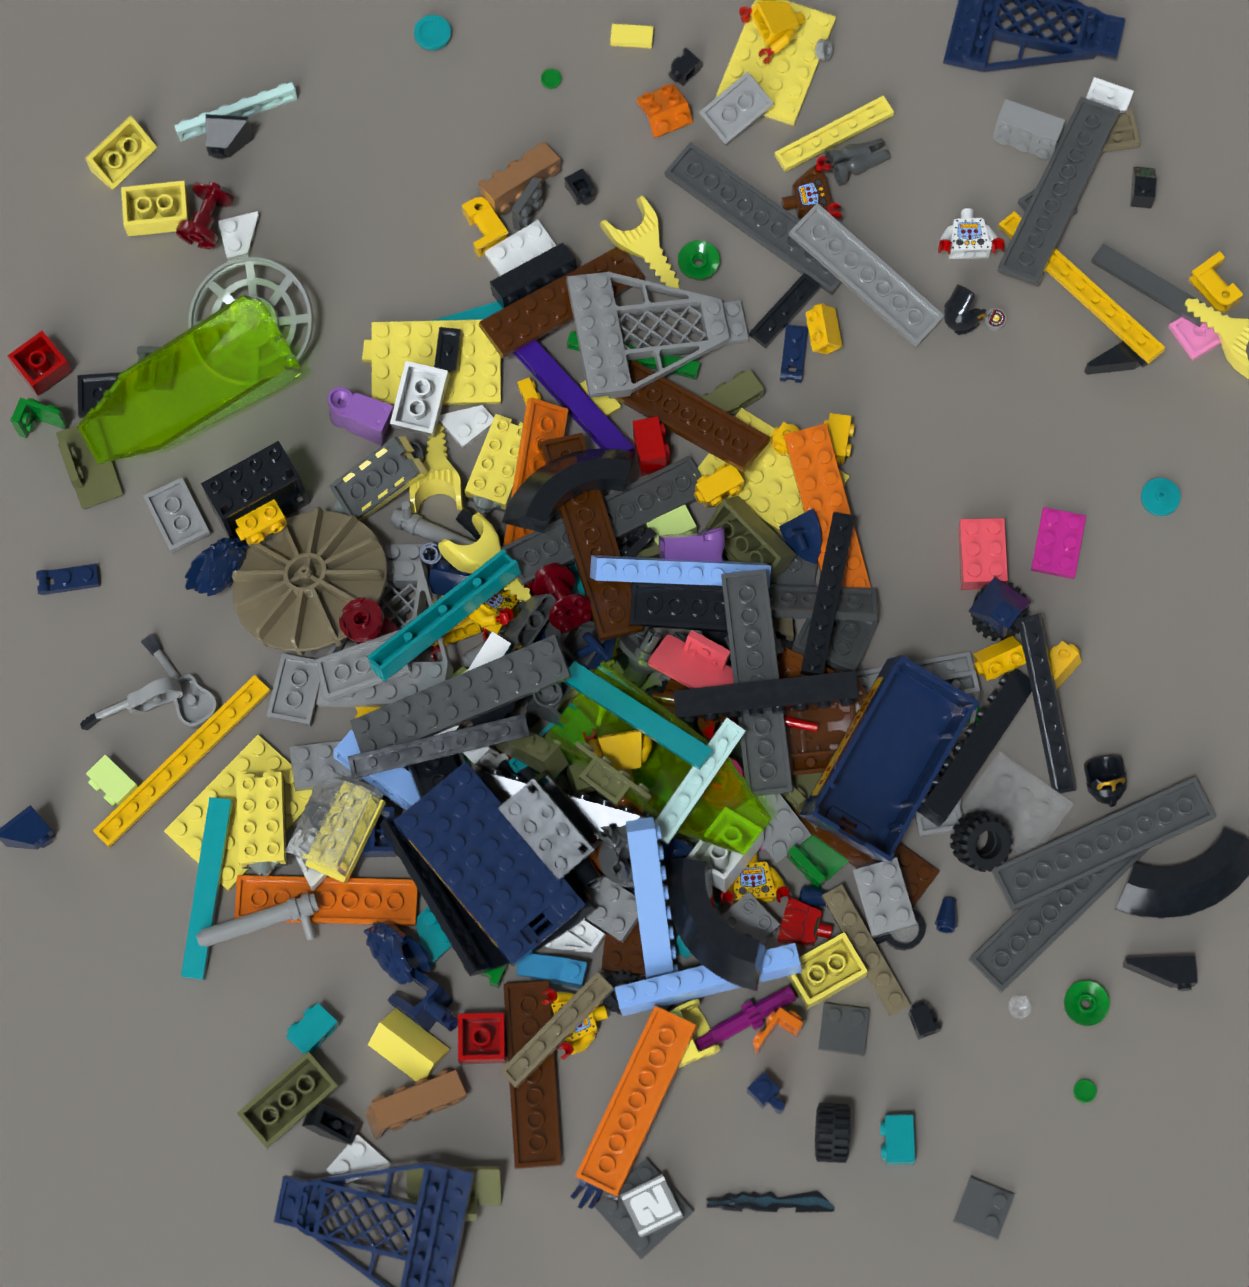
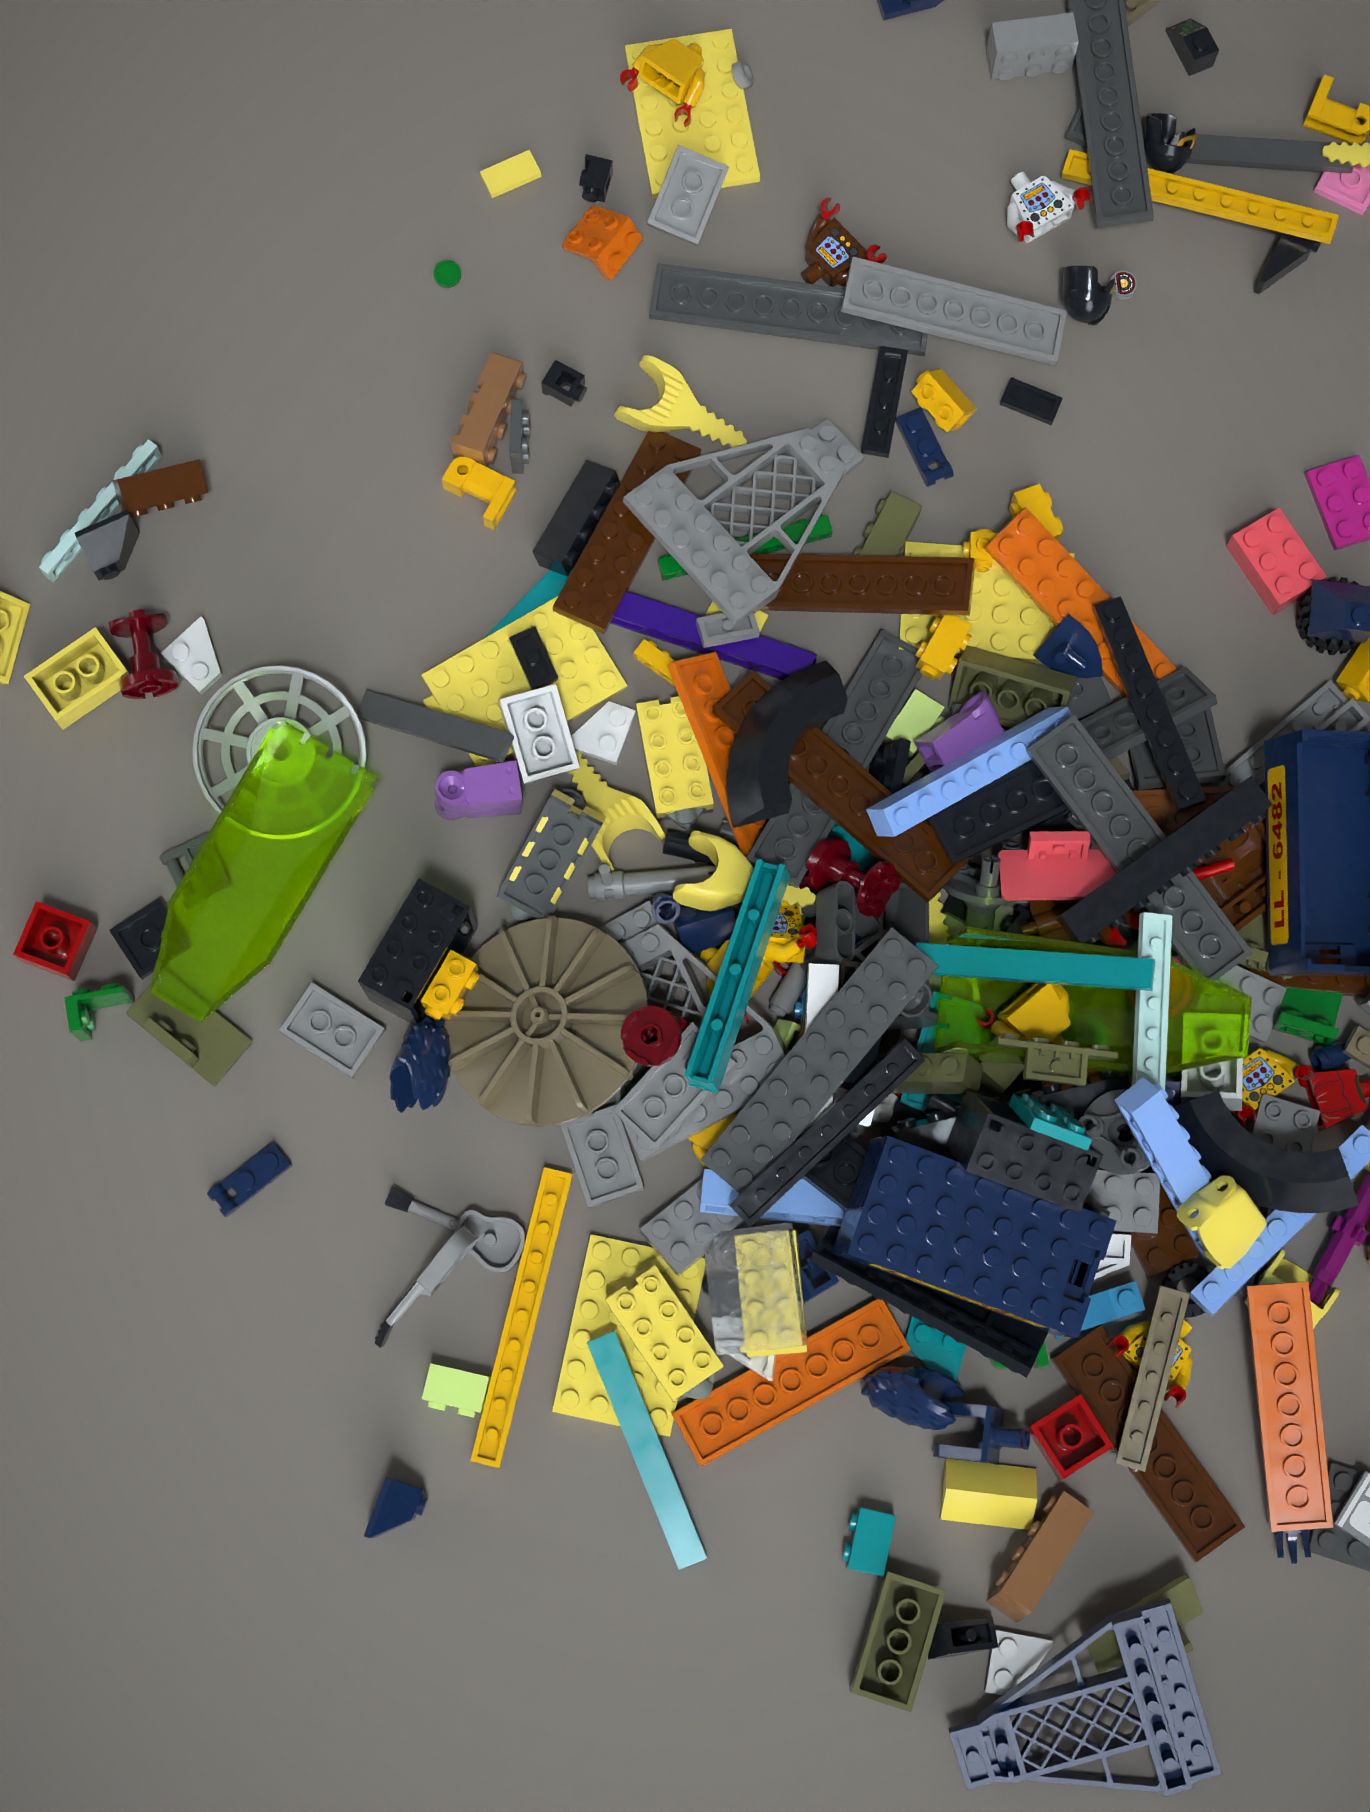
camera: 35 degrees left, 5 degrees up
(280, 116) = (161, 488): none -> reddish brown brick
(292, 909) = (764, 1416): light grey cylinder -> none
(357, 358) = (435, 726): none -> dark grey tile
(432, 32) = (275, 292): teal piece -> none
(519, 248) = (538, 494): white plate -> none
(577, 395) = (719, 629): none -> light grey plate
(578, 814) = (1051, 1120): none -> teal plate
(603, 652) = (940, 914): dark blue shield -> none
(650, 445) = (835, 641): red brick -> none
(660, 949) = (1225, 1221): none -> light yellow piece
(698, 251) = (752, 384): green dish -> none
(834, 133) = (813, 167): light yellow plate -> none
(858, 158) = (860, 179): dark grey piece -> none
(885, 362) = (1031, 401): none -> black tile
(1079, 239) = (1162, 145): none -> black helmet

